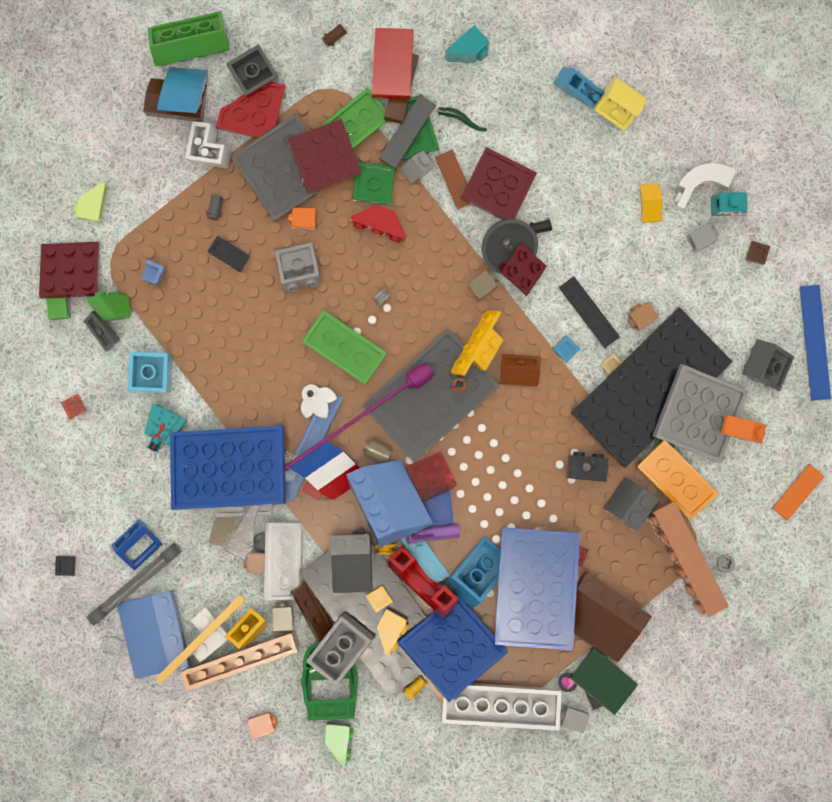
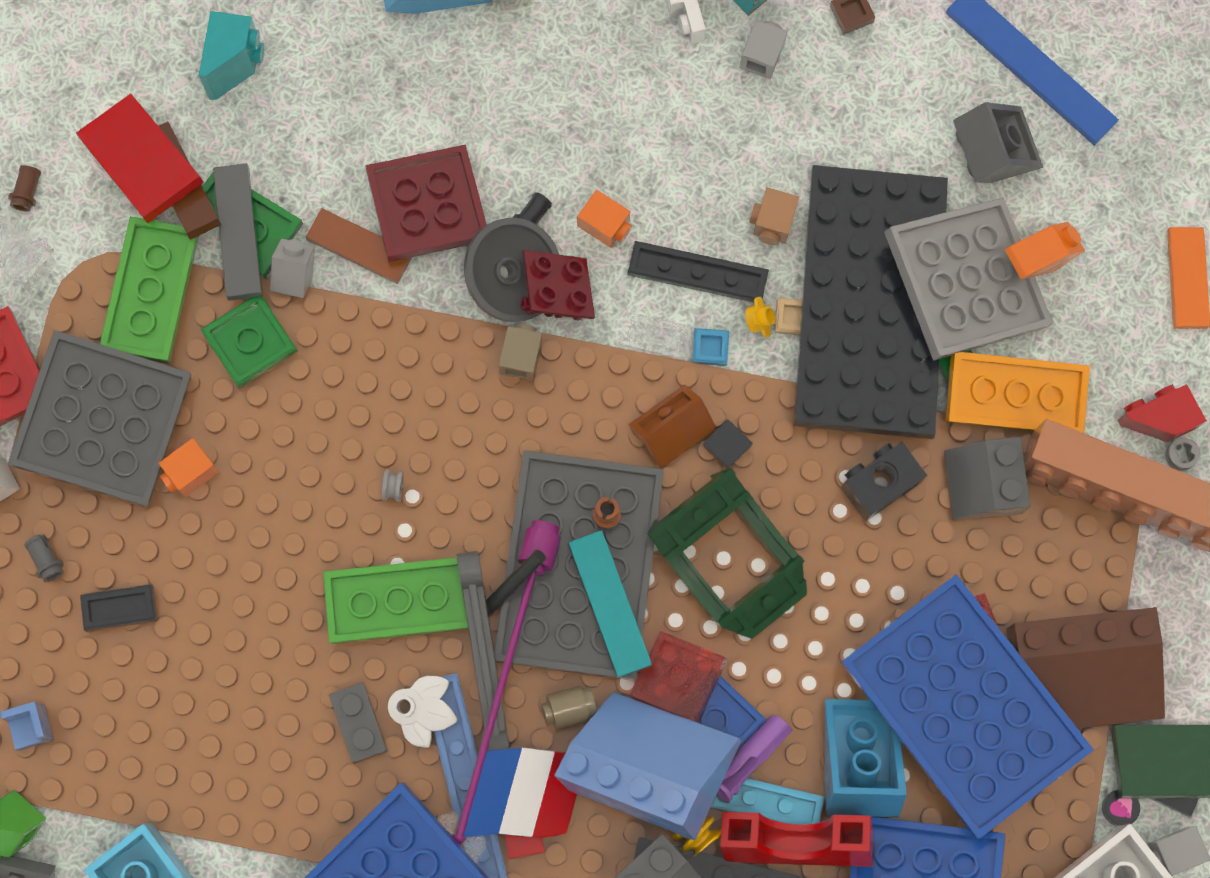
camera: 45 degrees left, 10 degrees down
(286, 384) = (358, 723): none -> dark grey plate
(298, 267) = (236, 542): light grey plate -> none
(324, 156) = (145, 356): dark red plate -> none
(362, 395) = (481, 644): none -> dark grey piece
(380, 221) = (303, 383): red slope -> none
(393, 381) = (511, 584): none -> pearl dark grey bar
(428, 423) = (610, 604): none -> teal tile
(454, 113) = (287, 157): dark green animal -> none
(481, 345) = (590, 436): yellow bracket -> none
(496, 418) = (698, 516): none -> dark green wedge
(536, 397) = (727, 444): none -> black tile
(568, 256) = (604, 219): none -> orange brick
(597, 354) = (760, 317): none -> yellow plate
(651, 203) = (654, 61): yellow slope -> none
(732, 542) = (1167, 416): none -> red slope

